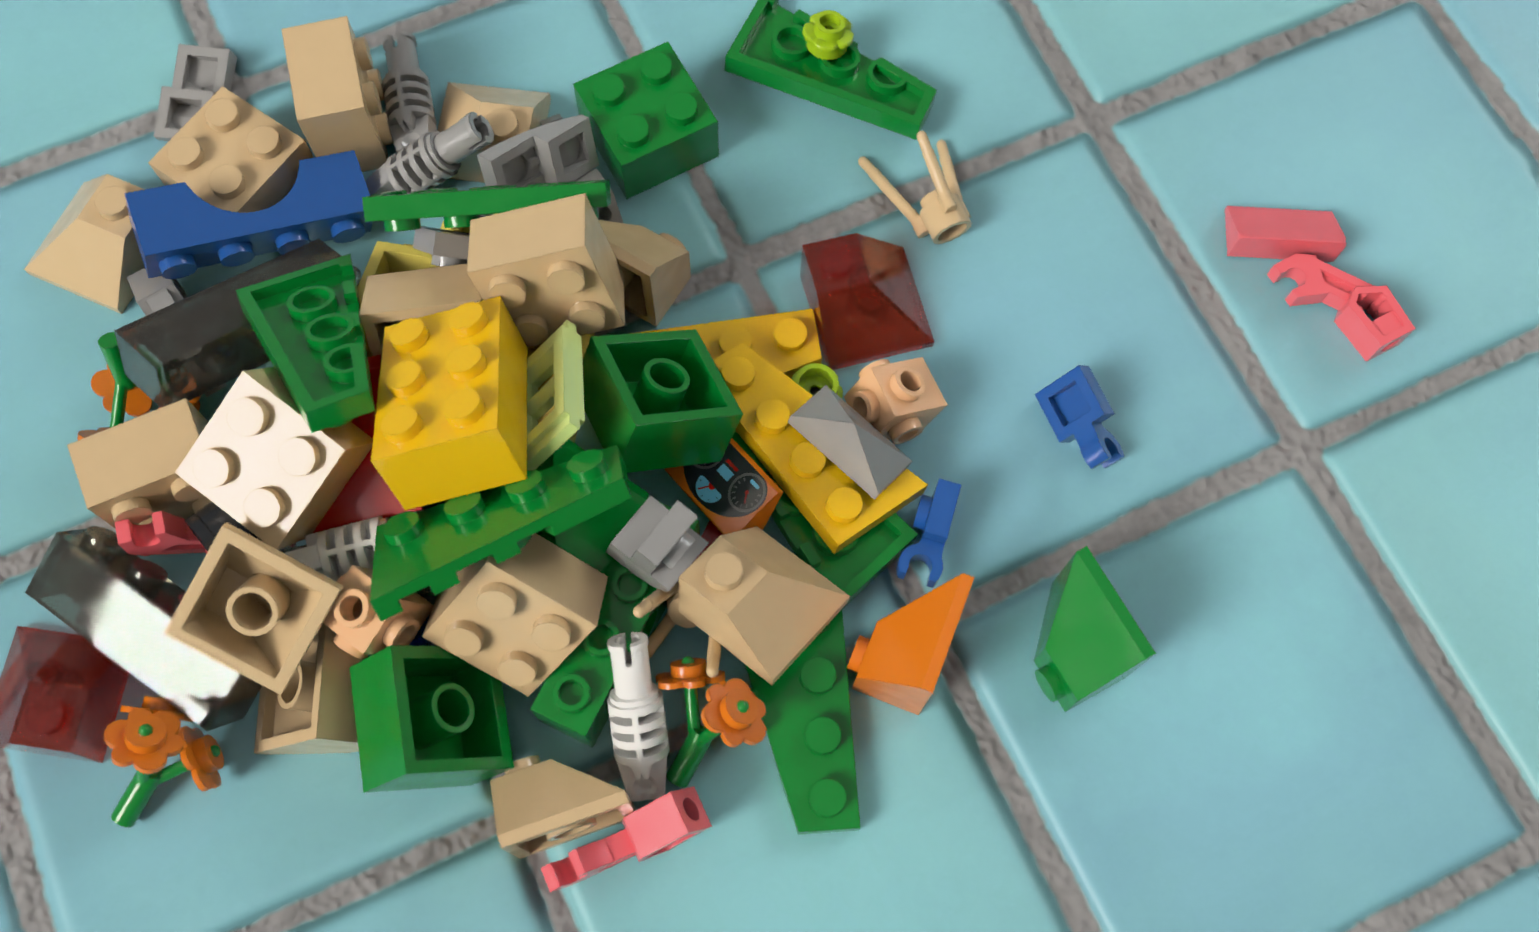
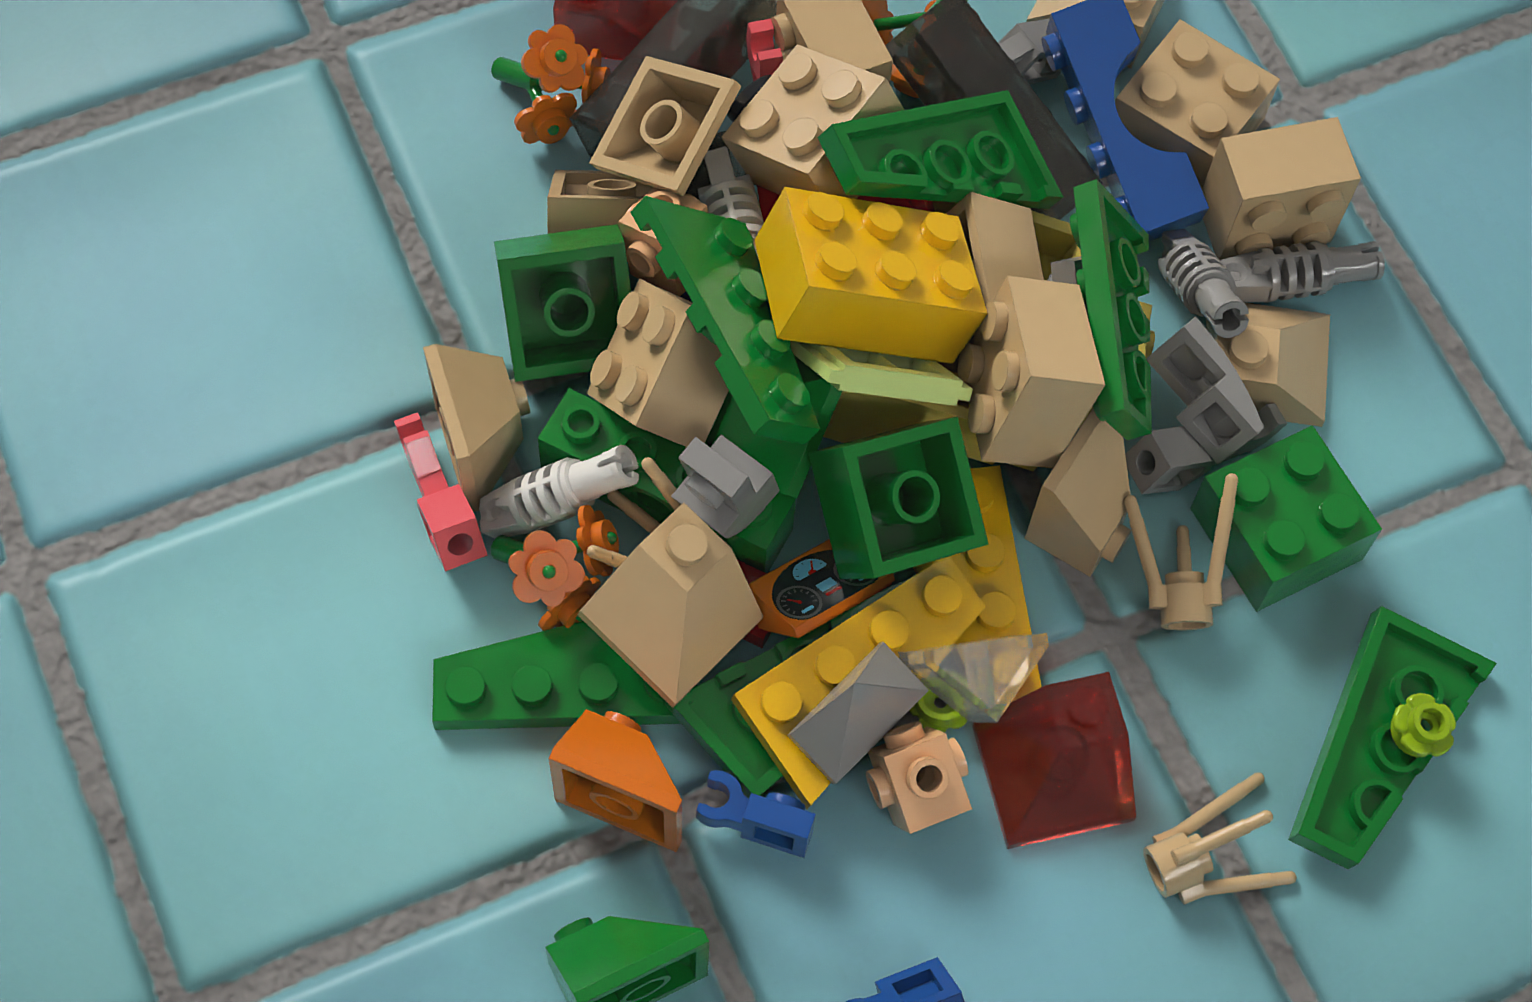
camera: 90 degrees right, 5 degrees down
(196, 78) = (1305, 71): light grey slope -> none
(719, 198) = (1185, 598): none -> tan plant
(804, 340) = (978, 675): none -> clear slope

